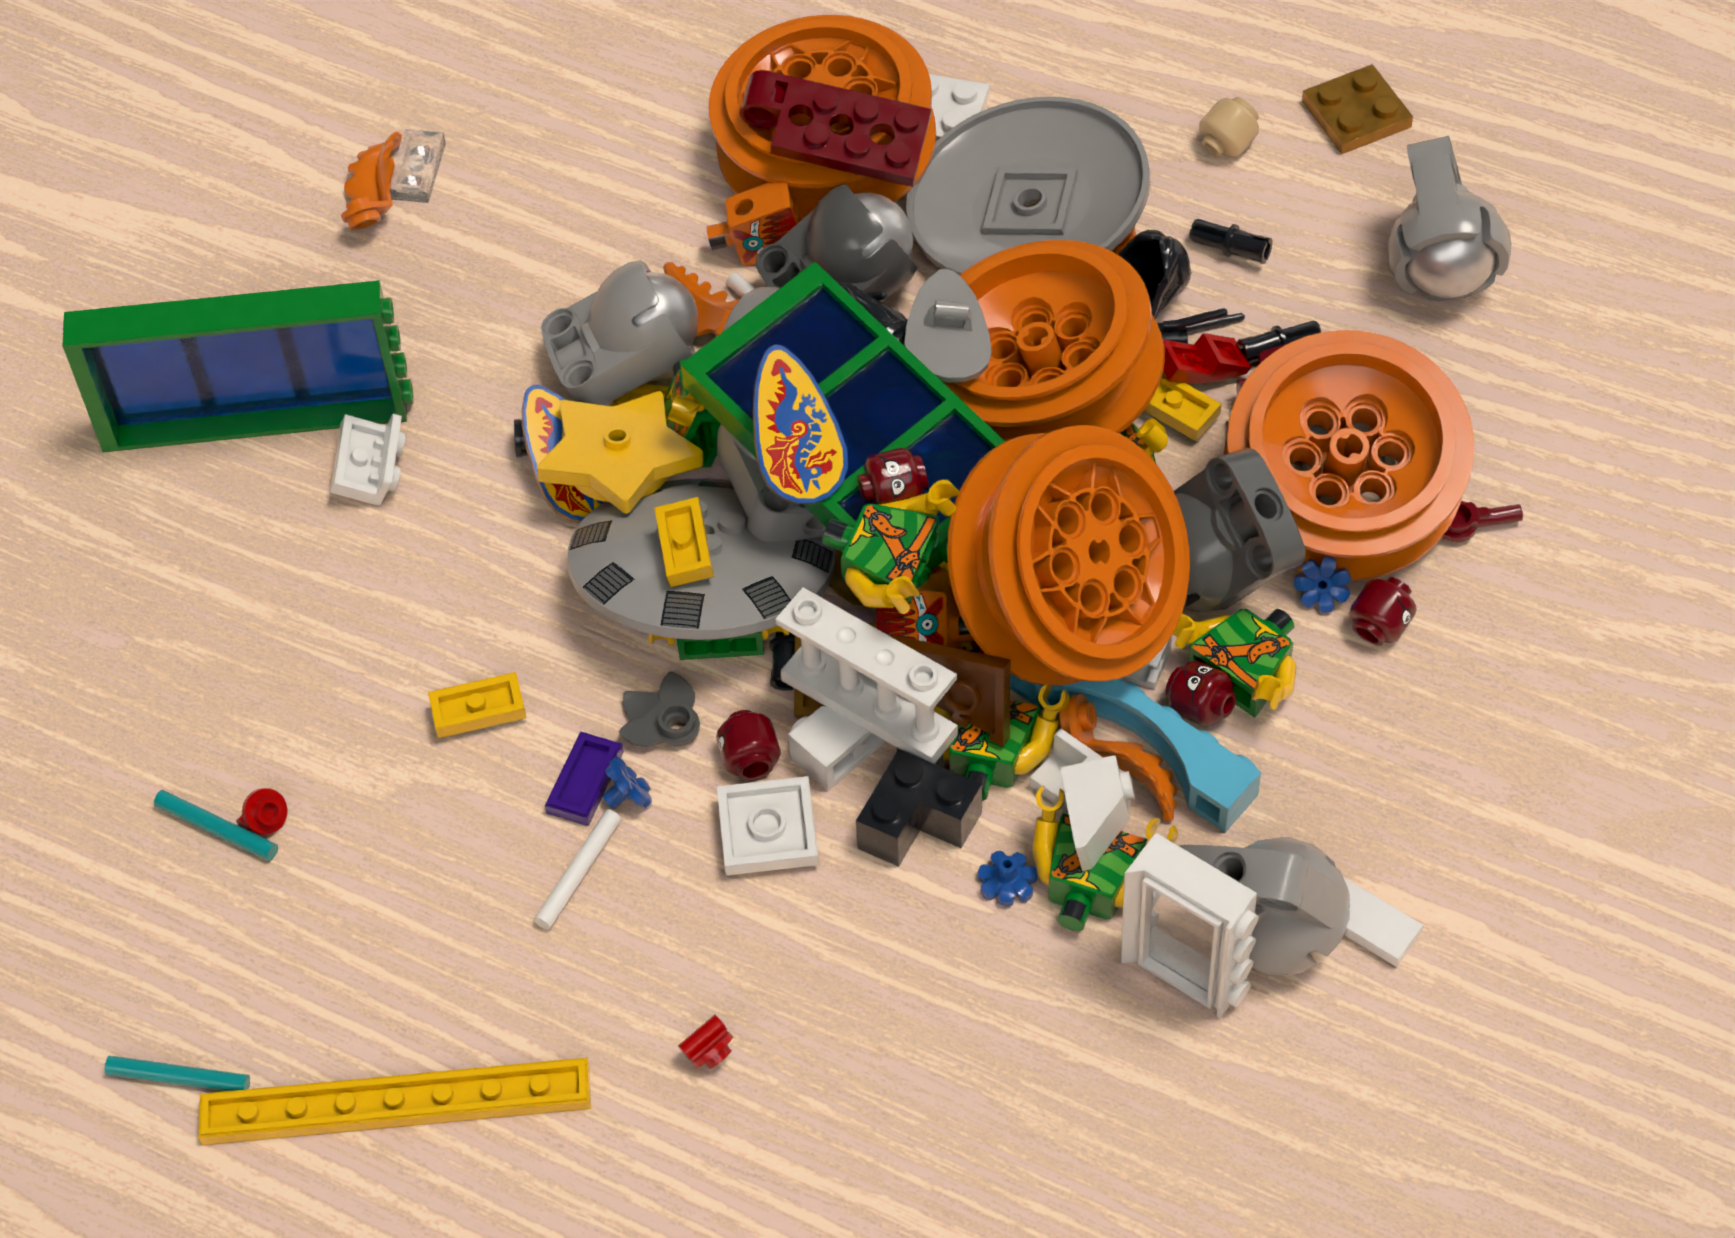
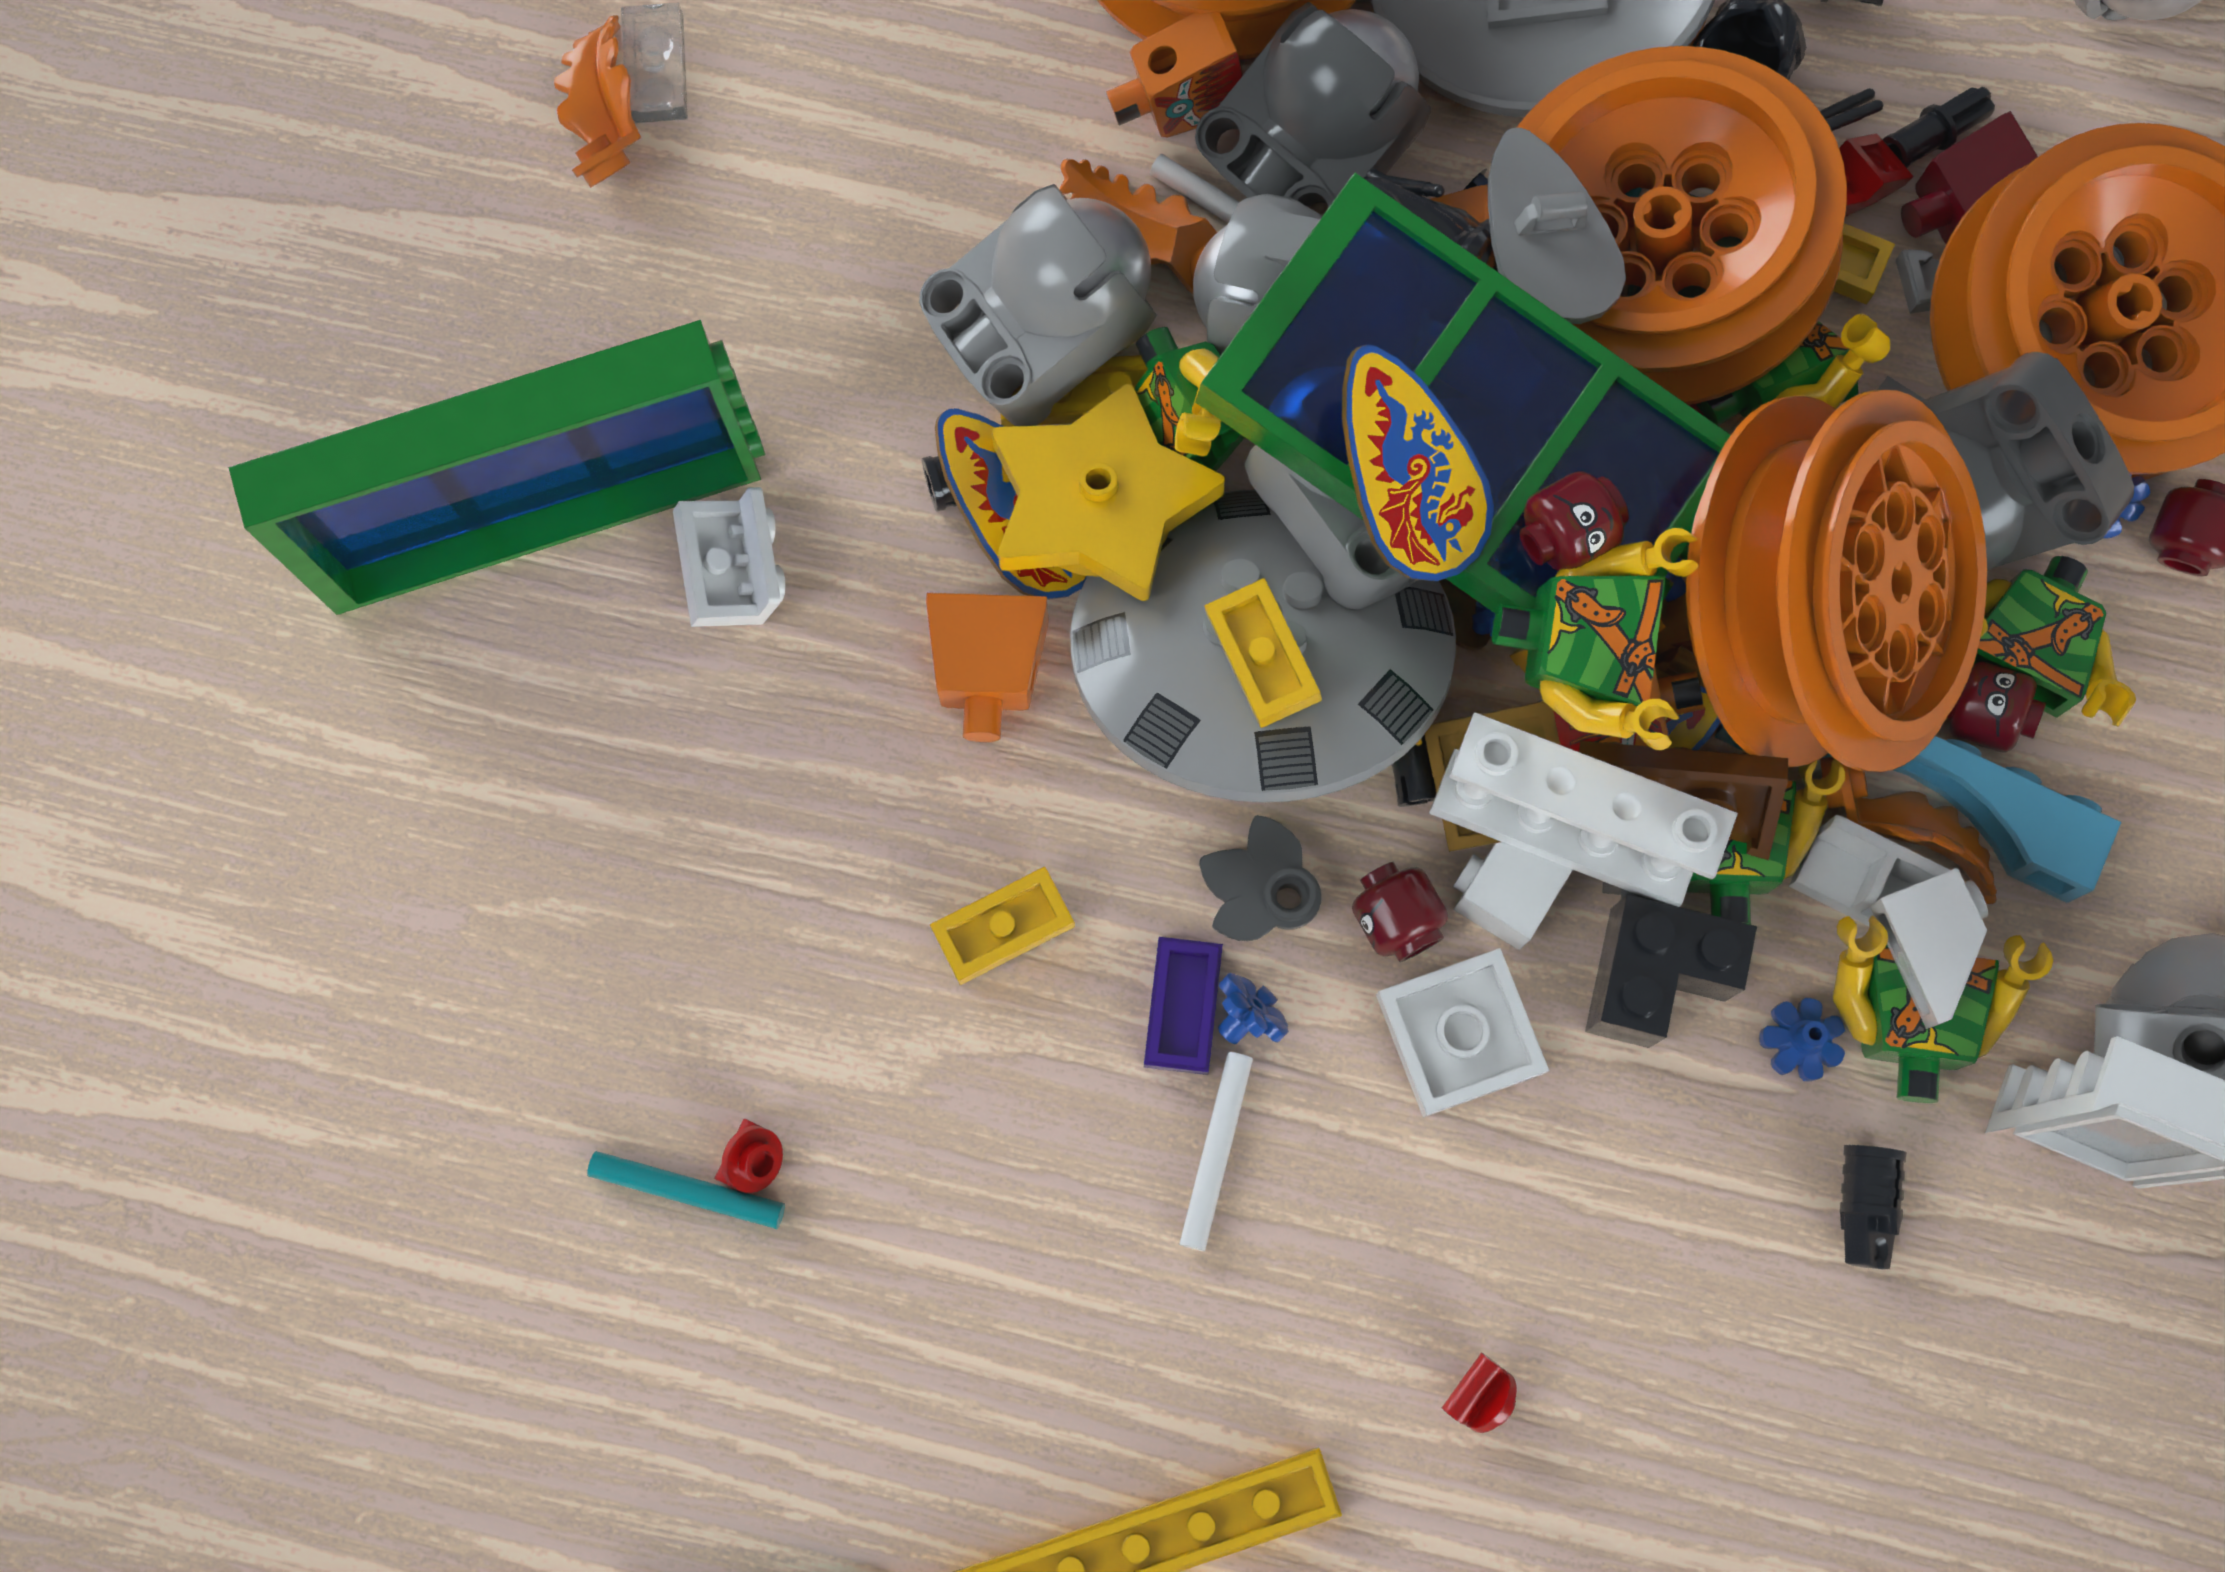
camera: 15 degrees left, 20 degrees up
(520, 542) = (986, 655): none -> orange torso
(1019, 981) = (1871, 1204): none -> black hinge

